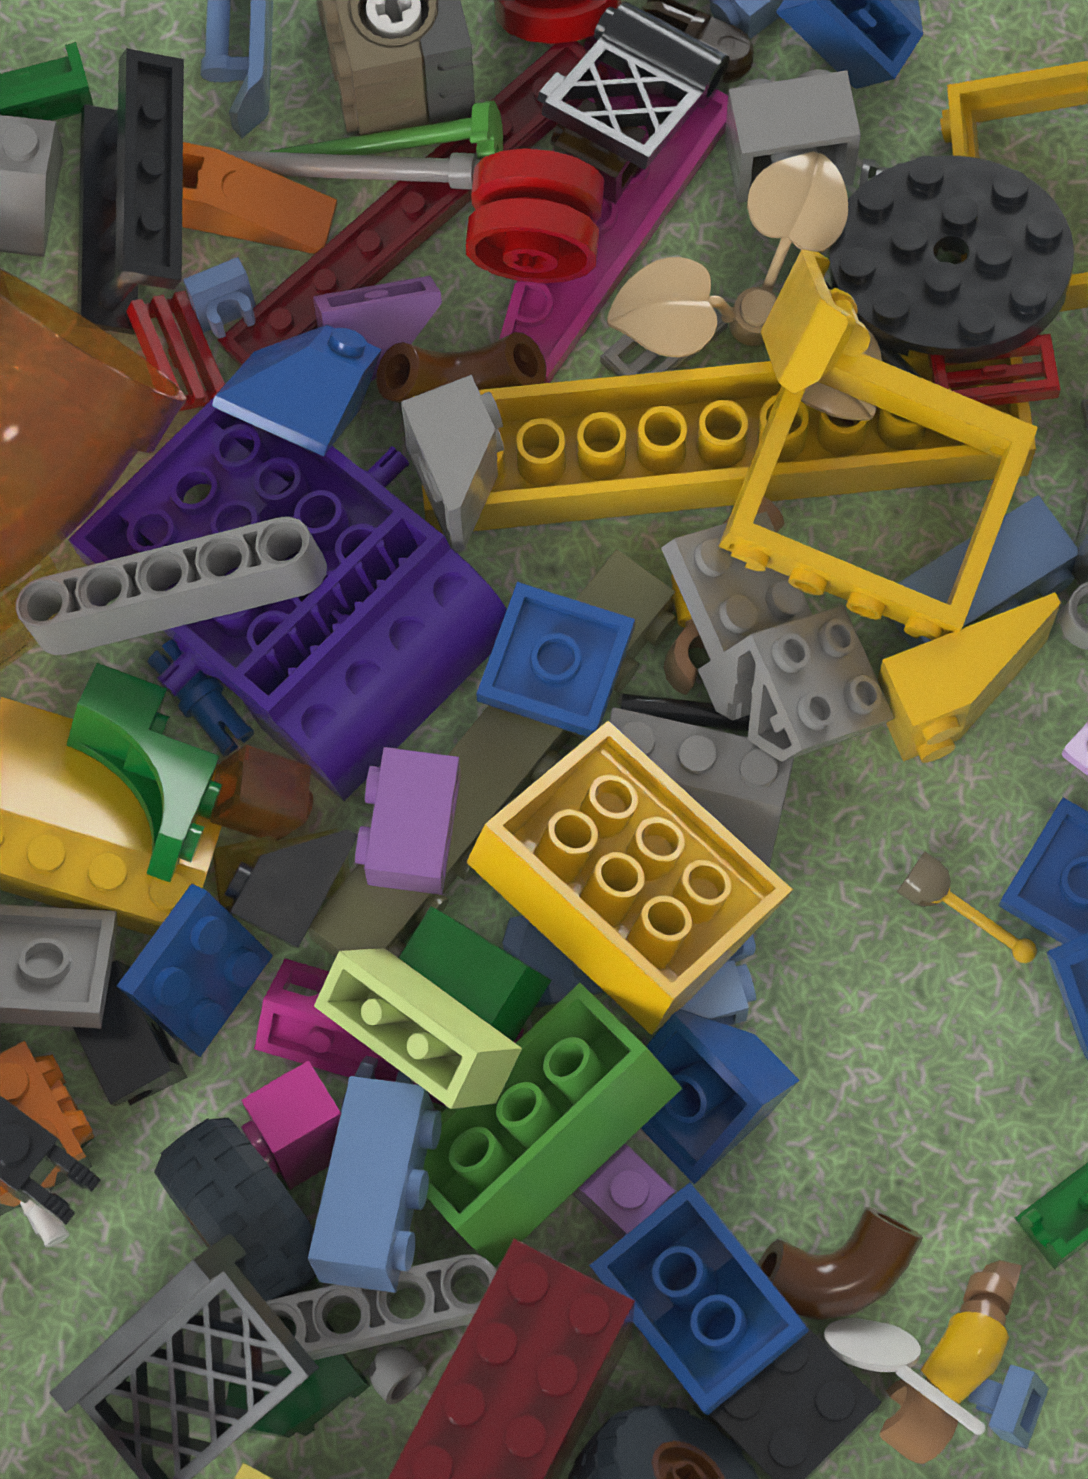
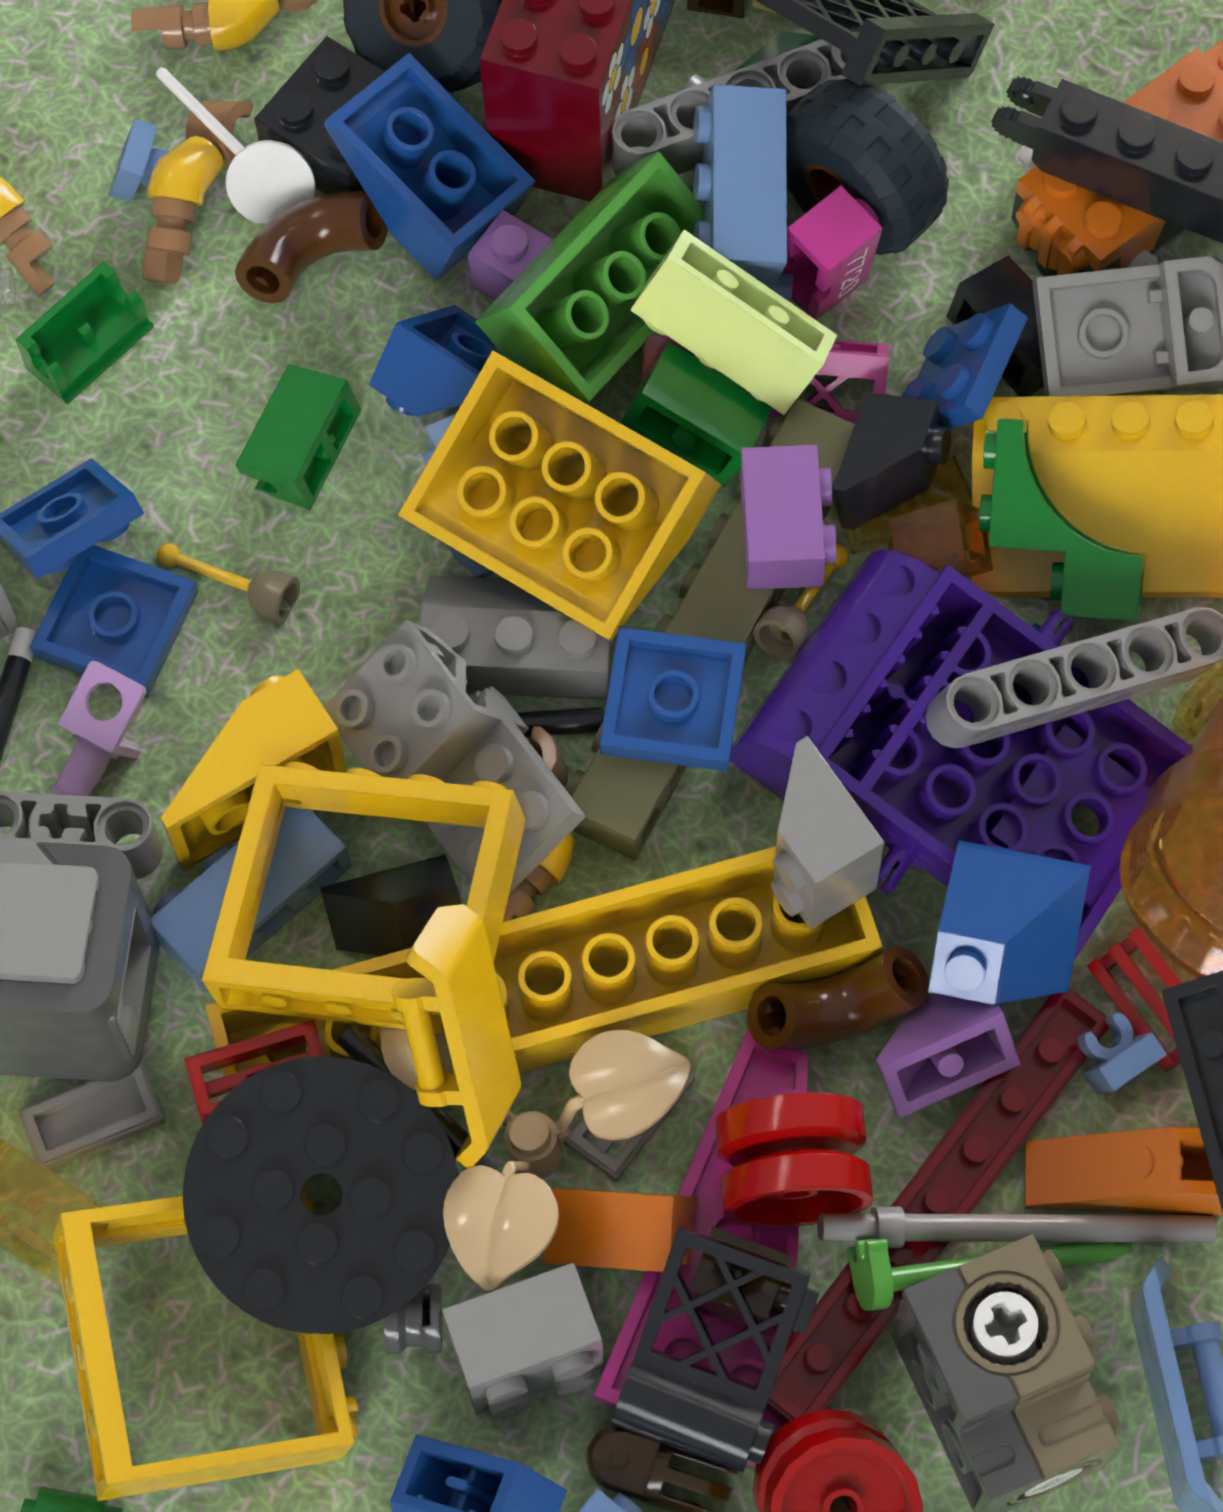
camera: 170 degrees right, 5 degrees down
(426, 735) = (780, 621): none -> dark tan hinge
(691, 220) = (618, 1228): none -> orange hinge
(846, 526) = (388, 907): none -> black slope
(878, 1045) = (299, 435): none -> green hinge

